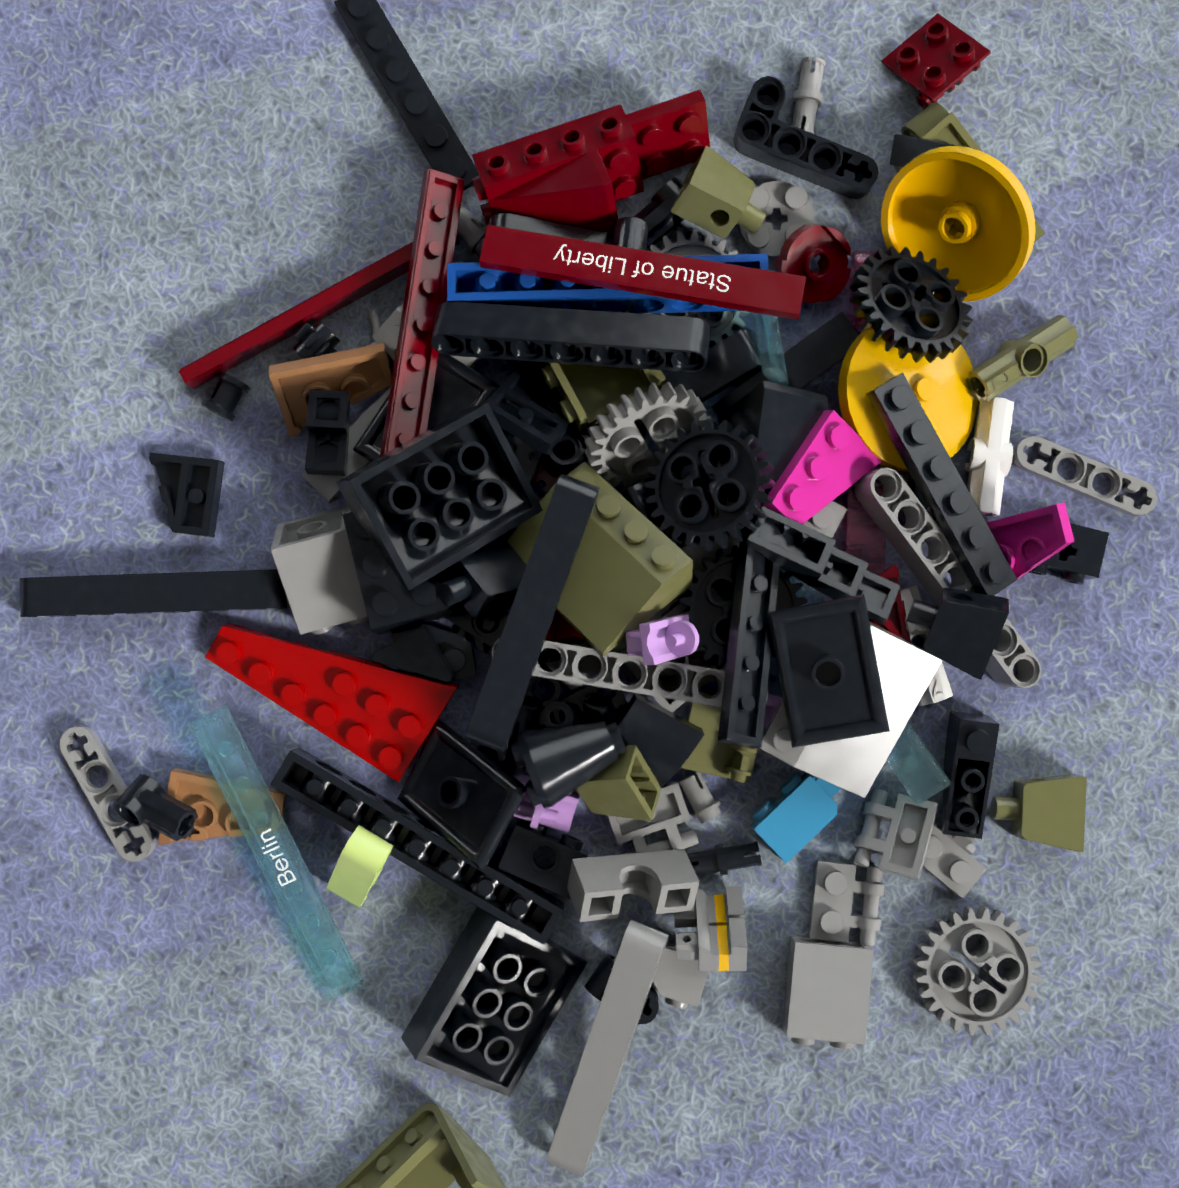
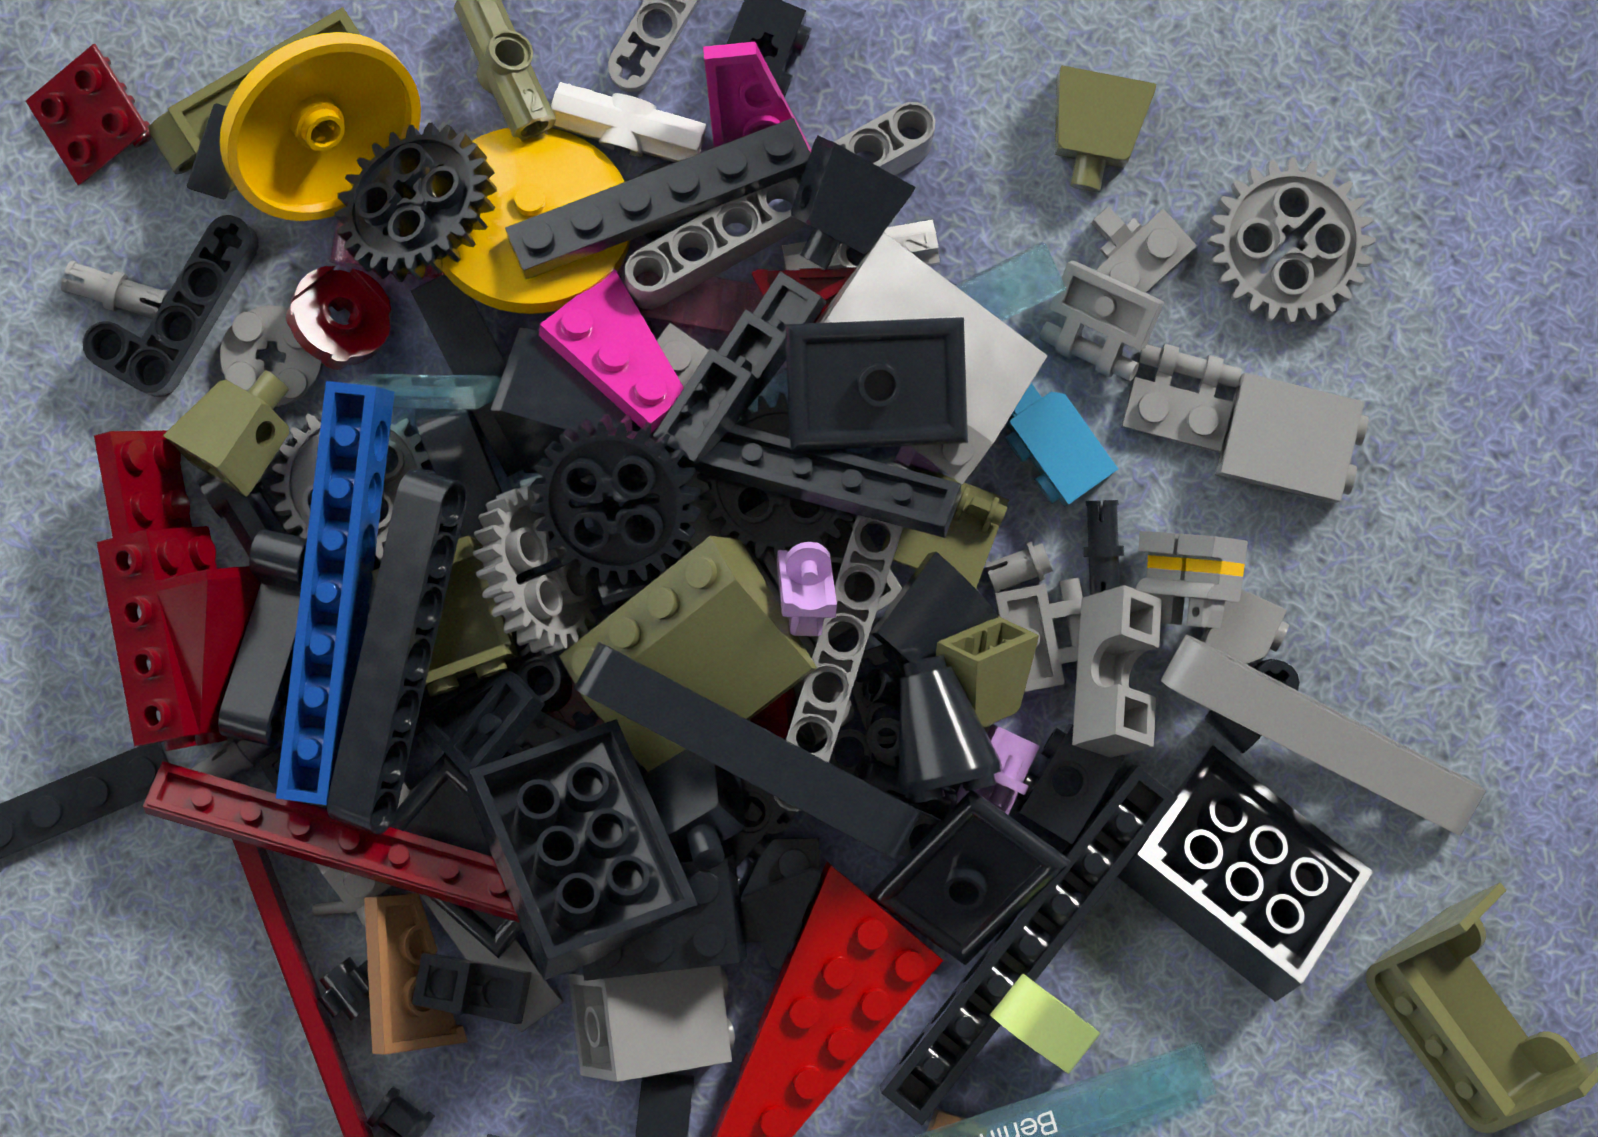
camera: 80 degrees left, 0 degrees up
(643, 272) = (327, 547): dark red tile -> none
(969, 767) = (1035, 215): black slope -> none

